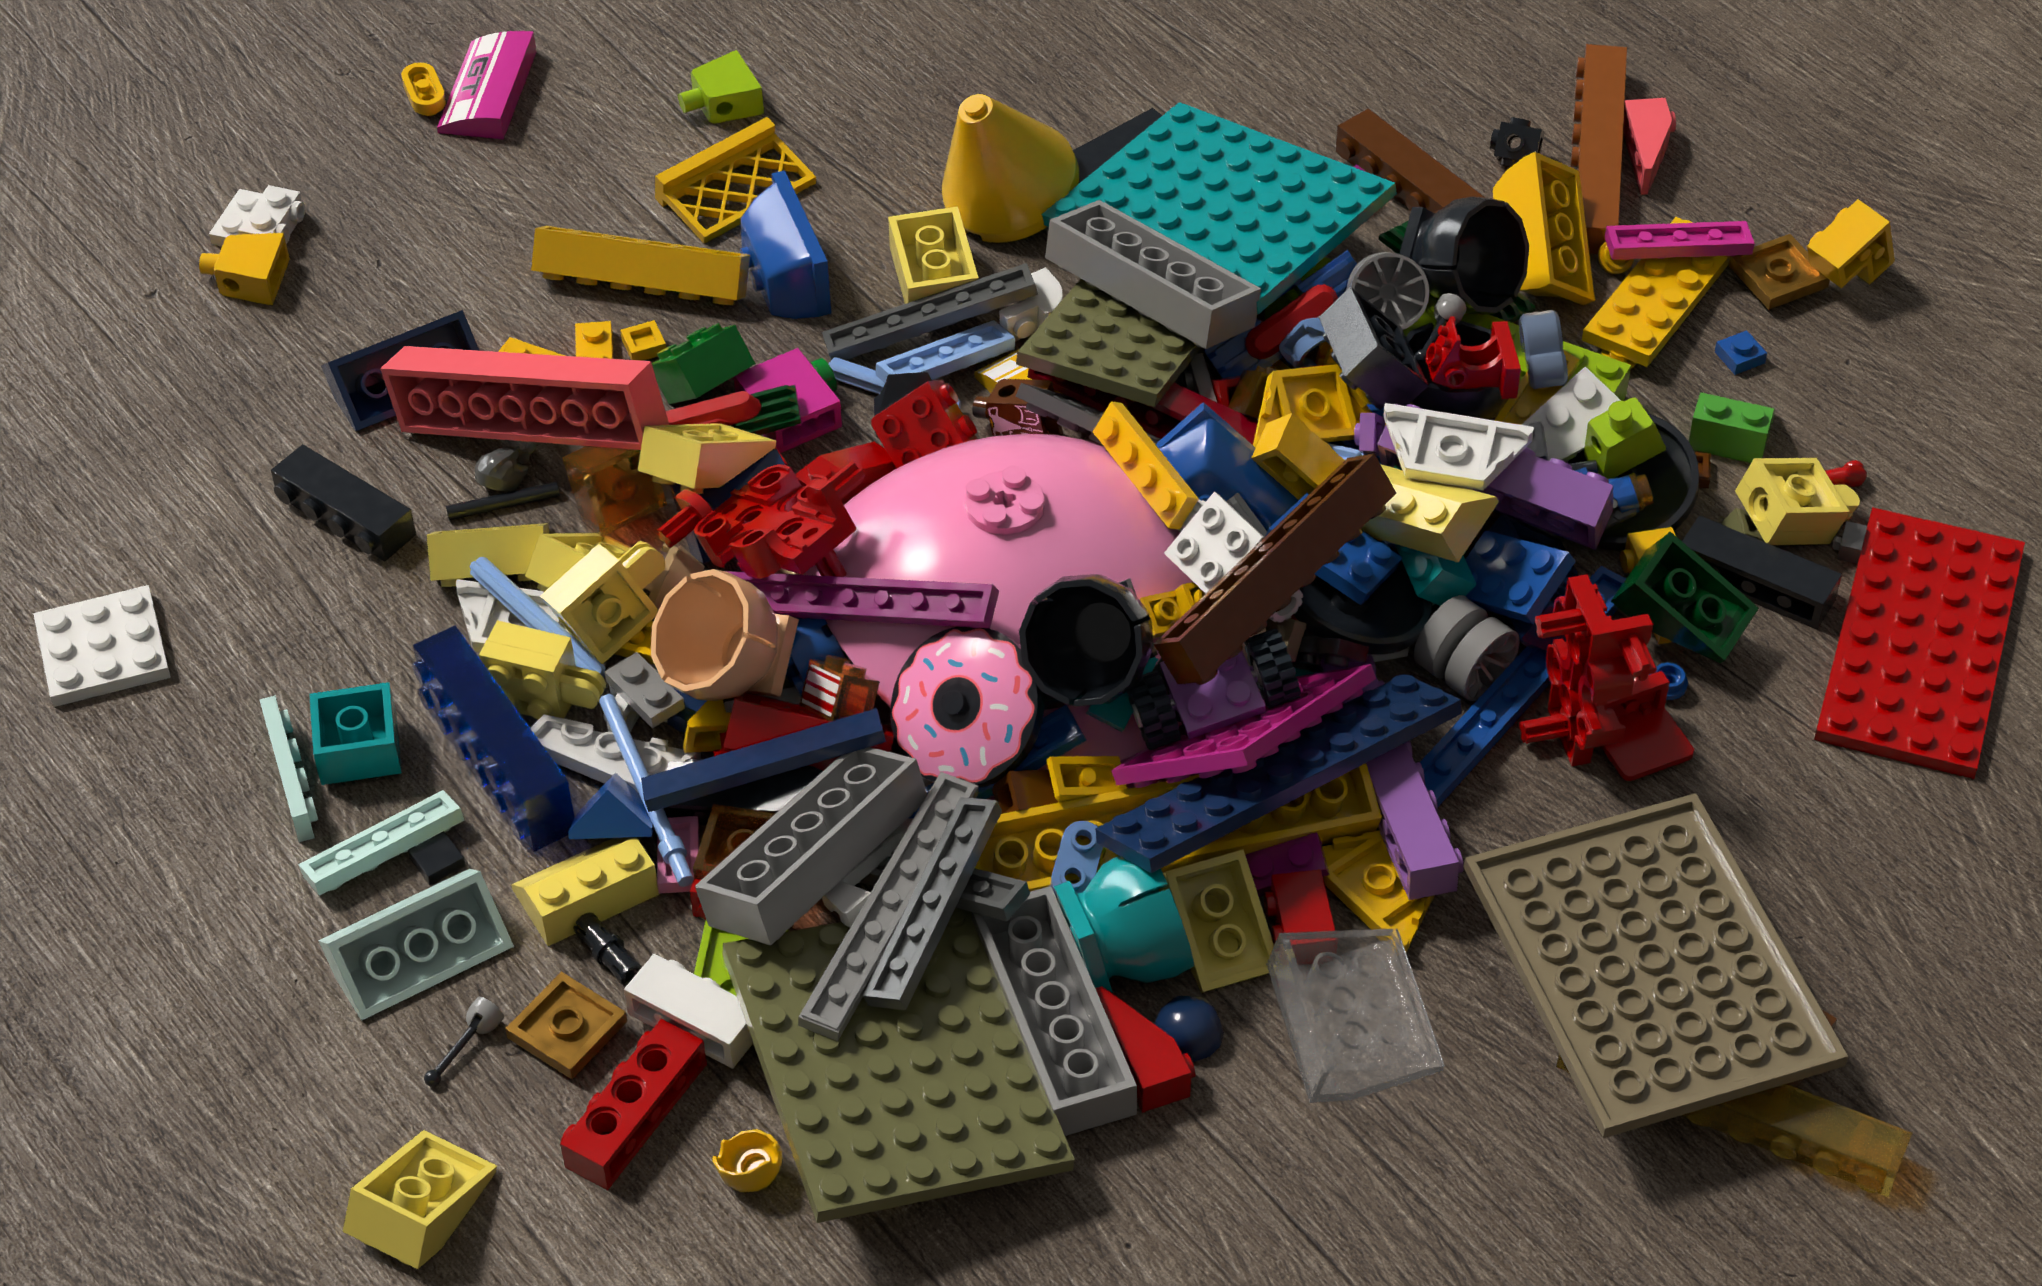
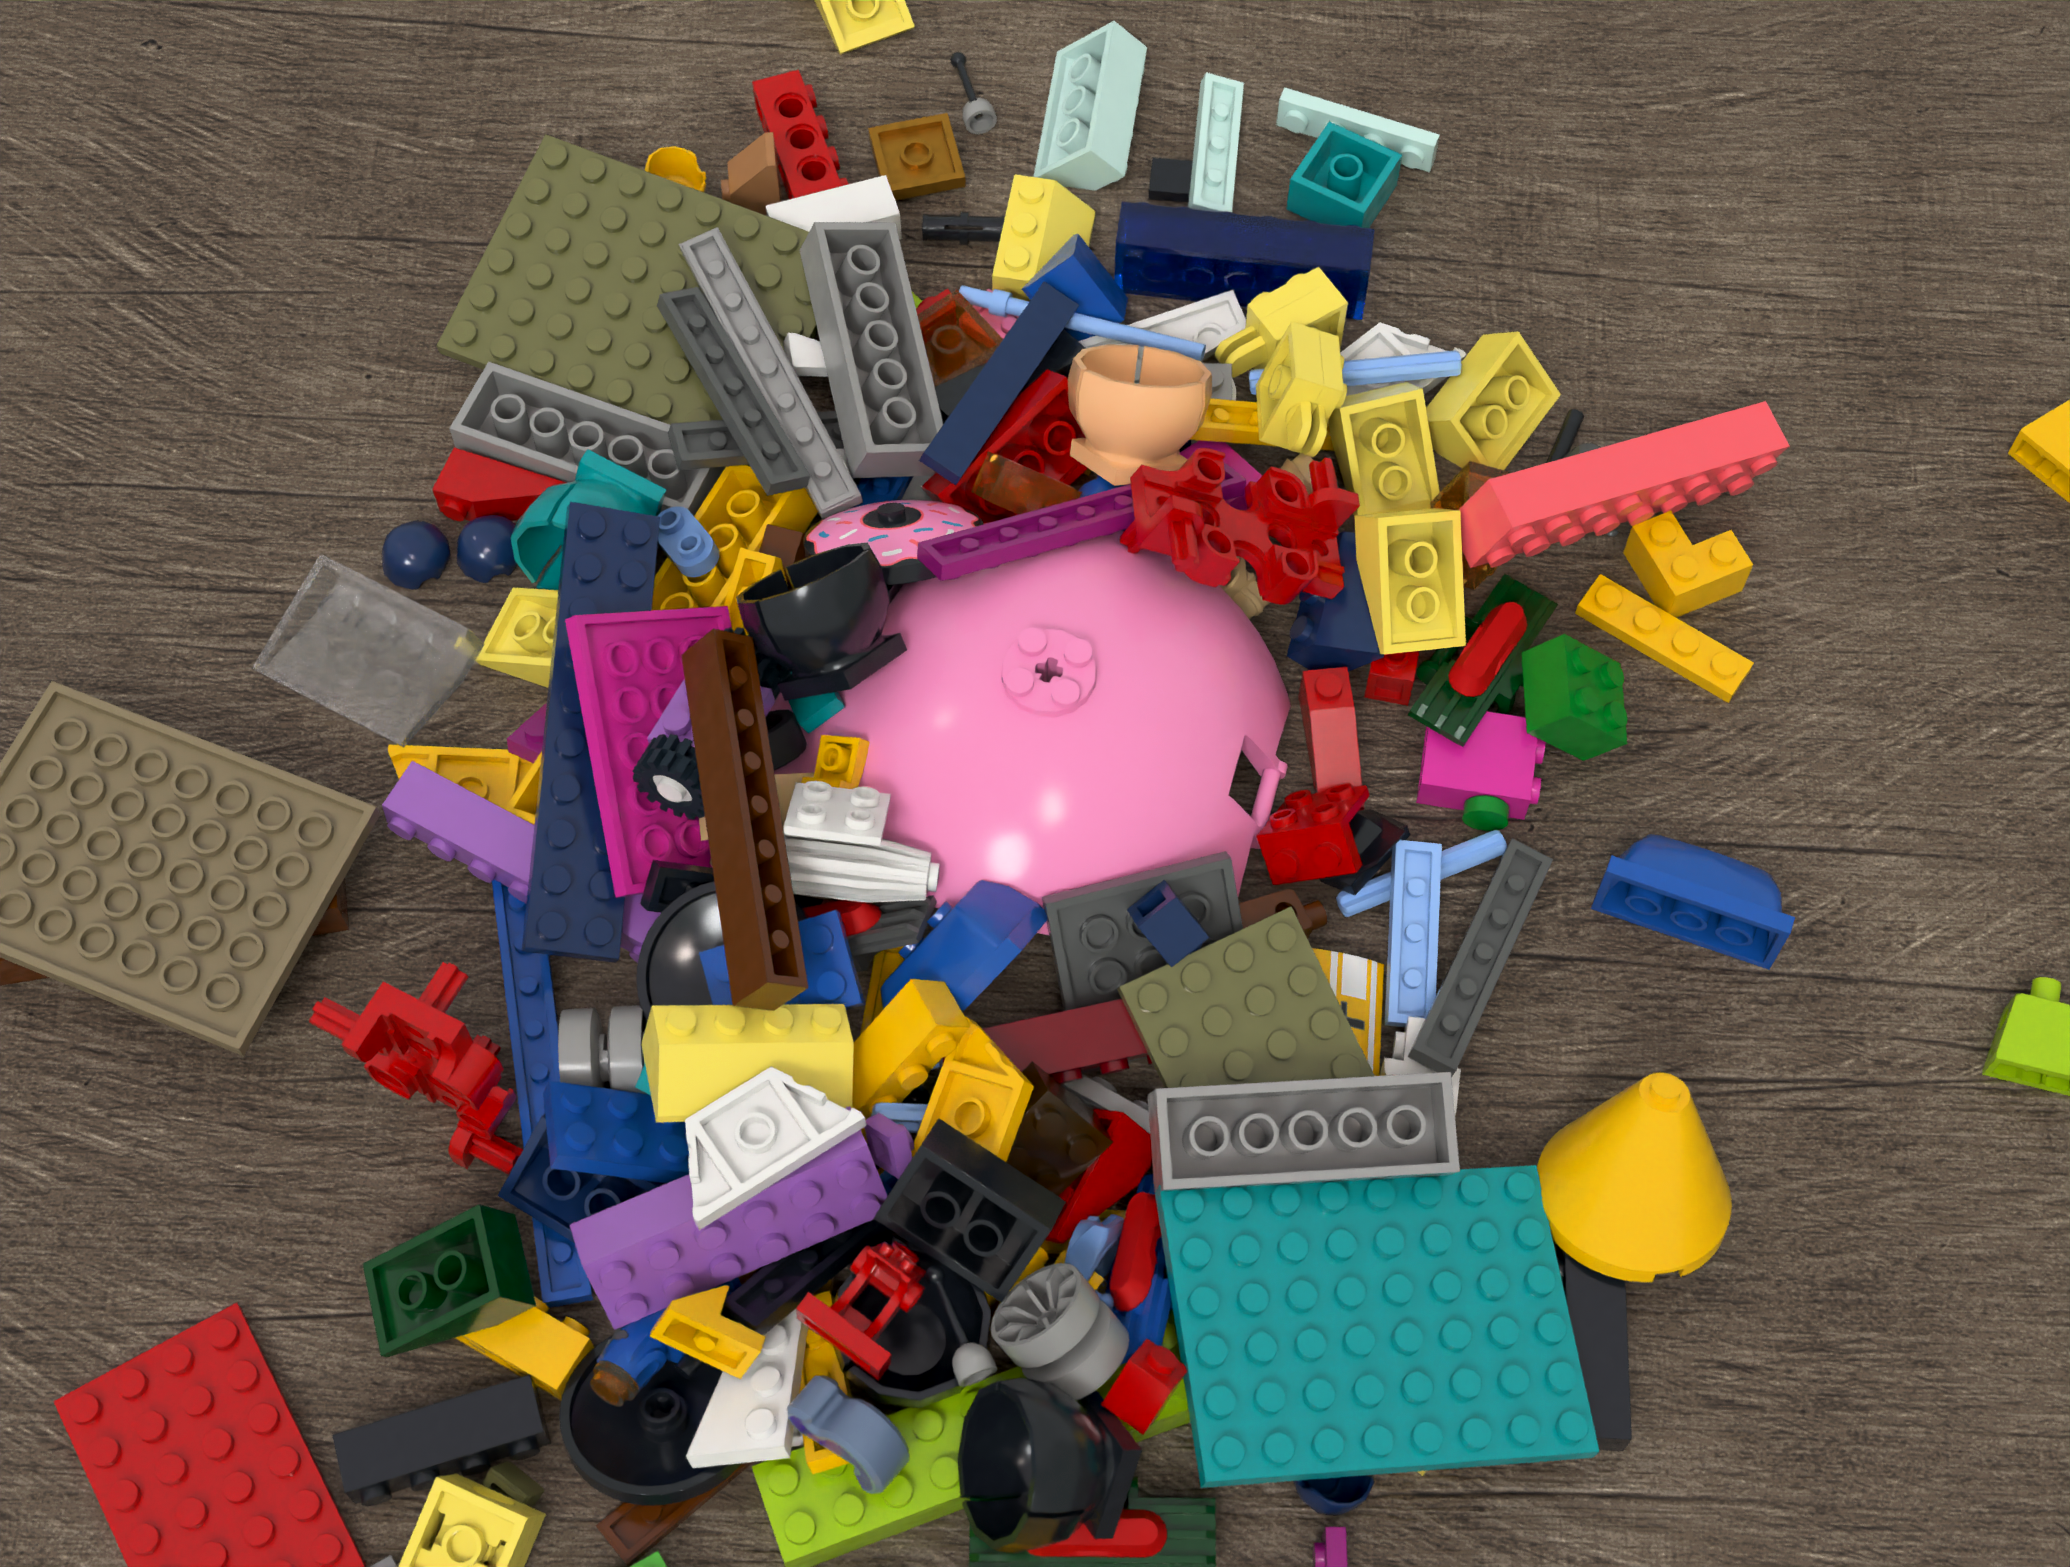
camera: 130 degrees right, 15 degrees up
(101, 645) = (1628, 96): white plate -> none
(343, 503) = (1651, 336): black brick -> none
(358, 378) = (1803, 504): dark blue slope -> none
(640, 263) = (1788, 758): yellow brick -> none
(643, 341) = (1675, 702): yellow plate -> none
(699, 1093) = (754, 176): none -> medium nougat slope
(718, 164) = (1908, 943): yellow fence -> none
(930, 252) = (1561, 1022): light yellow brick -> none
(1093, 391) = (1168, 923): none -> dark blue brick
(1145, 465) = (990, 854): yellow plate -> none
(1244, 1069) = (414, 554): none -> dark blue hair
(1298, 903) = (490, 697): red brick -> none
(1371, 235) = (1145, 1386): none -> red brick
(1566, 443) = (700, 1331): none -> yellow slope
(1622, 438) = (670, 1400): lime torso -> none
(1651, 734) = (389, 1142): red bracket -> none
(1677, 678) = (413, 1218): blue plate -> none

